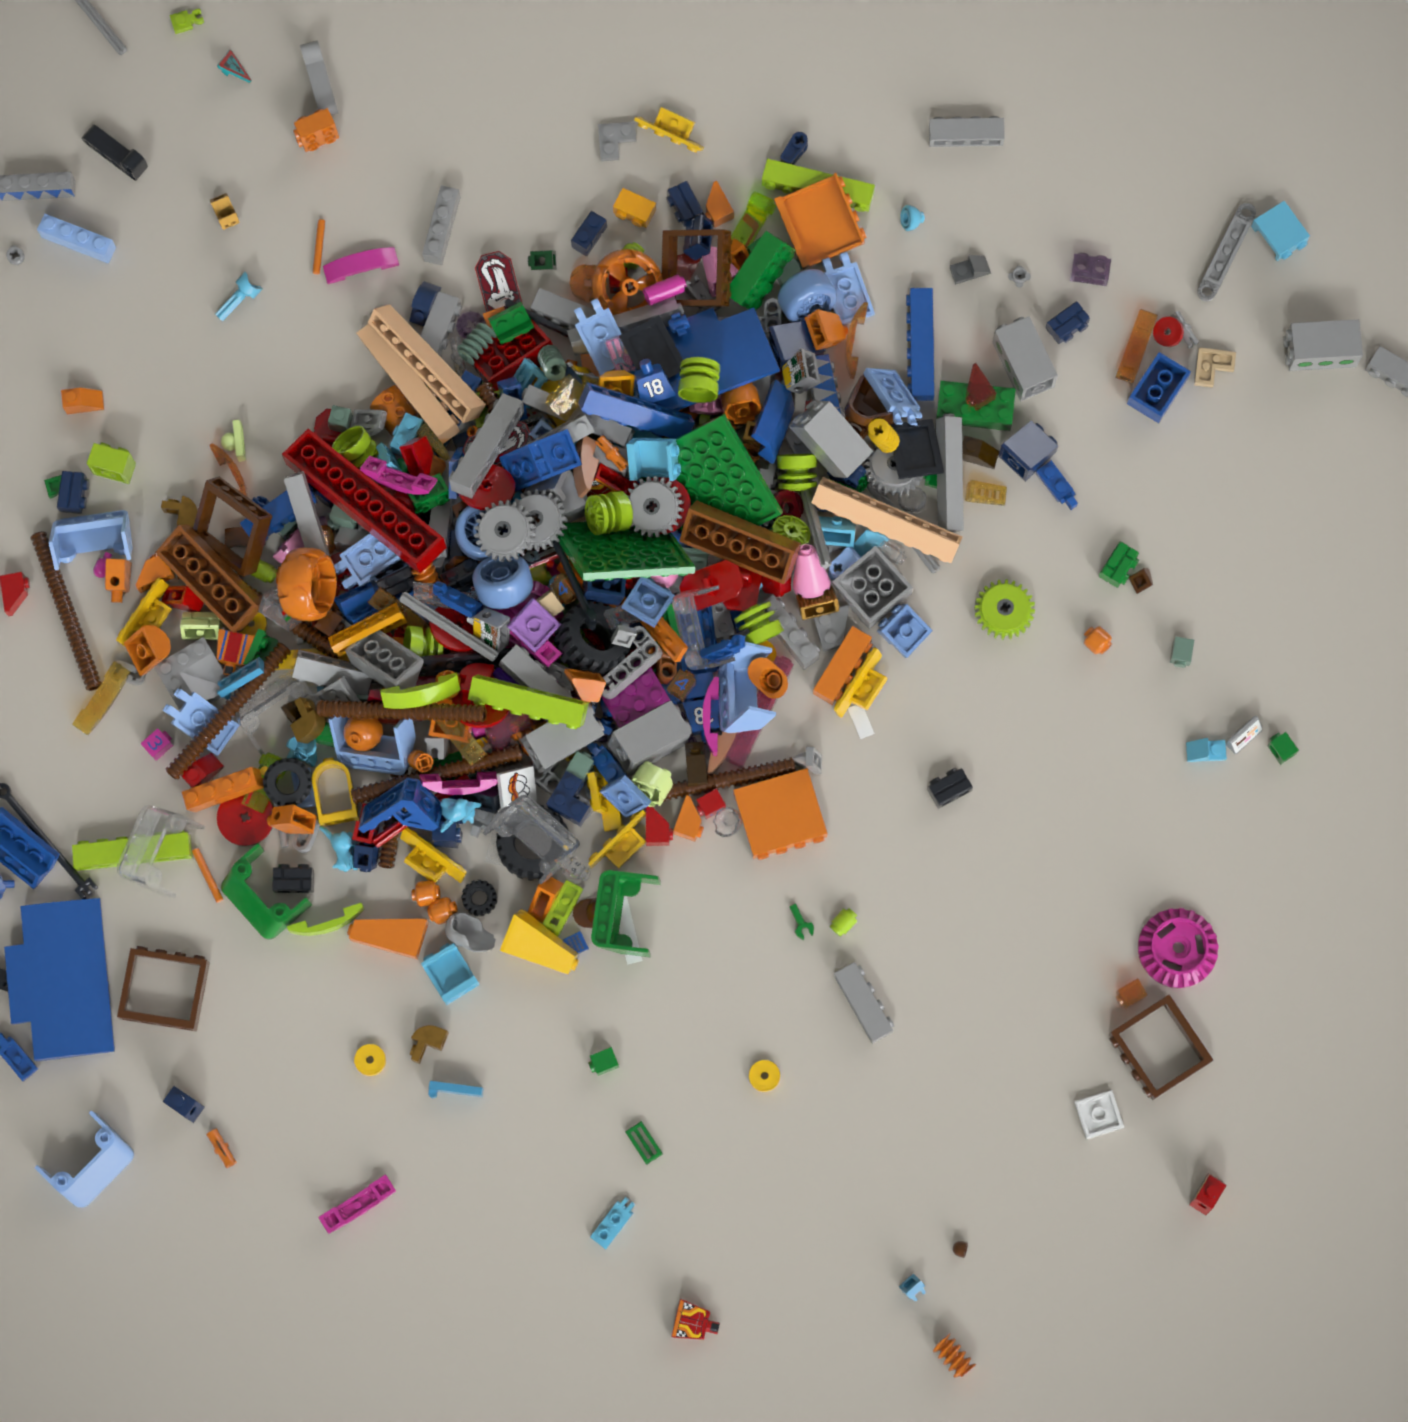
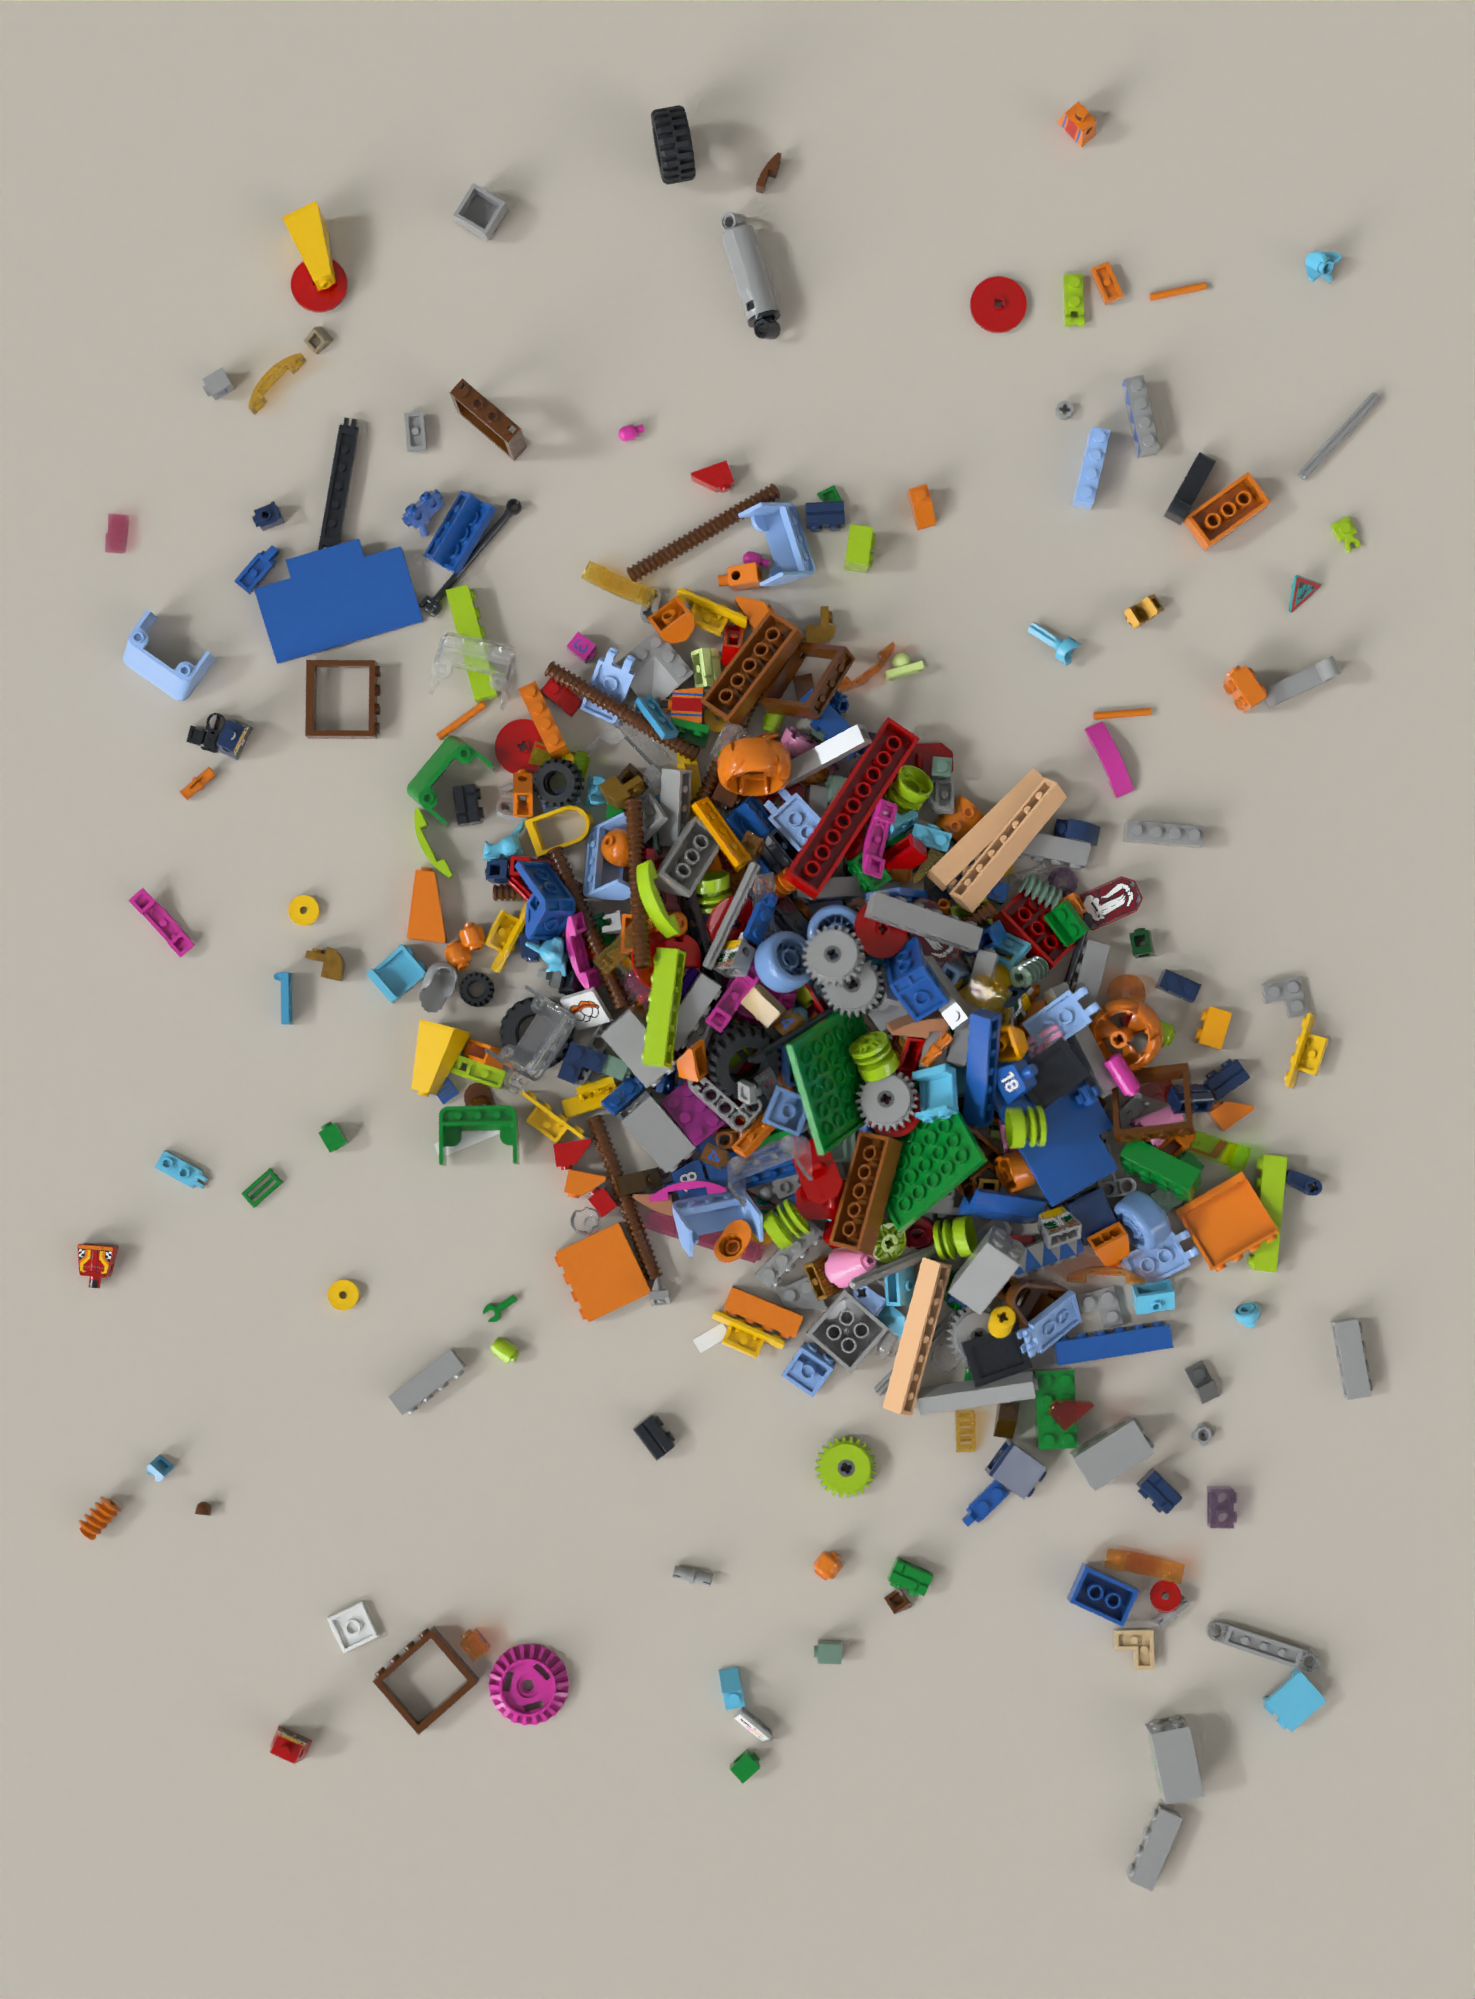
camera: 80 degrees right, 10 degrees up
(143, 121) = (1226, 511): none -> orange brick
(177, 1131) = (207, 738): none -> black piece
(415, 759) = (597, 909): orange wheel -> none
(533, 625) = (743, 1000): medium lavender tile -> none
(625, 796) = (593, 1117): medium blue tile -> none
(653, 782) = (607, 1141): yellowish green brick -> none
(724, 648) = (755, 1194): blue hinge -> none
(881, 299) = (1153, 1296): none -> medium azure brick
(882, 344) = (1104, 1301): none -> light grey plate
(1091, 771) = (692, 1576): none -> light grey pin

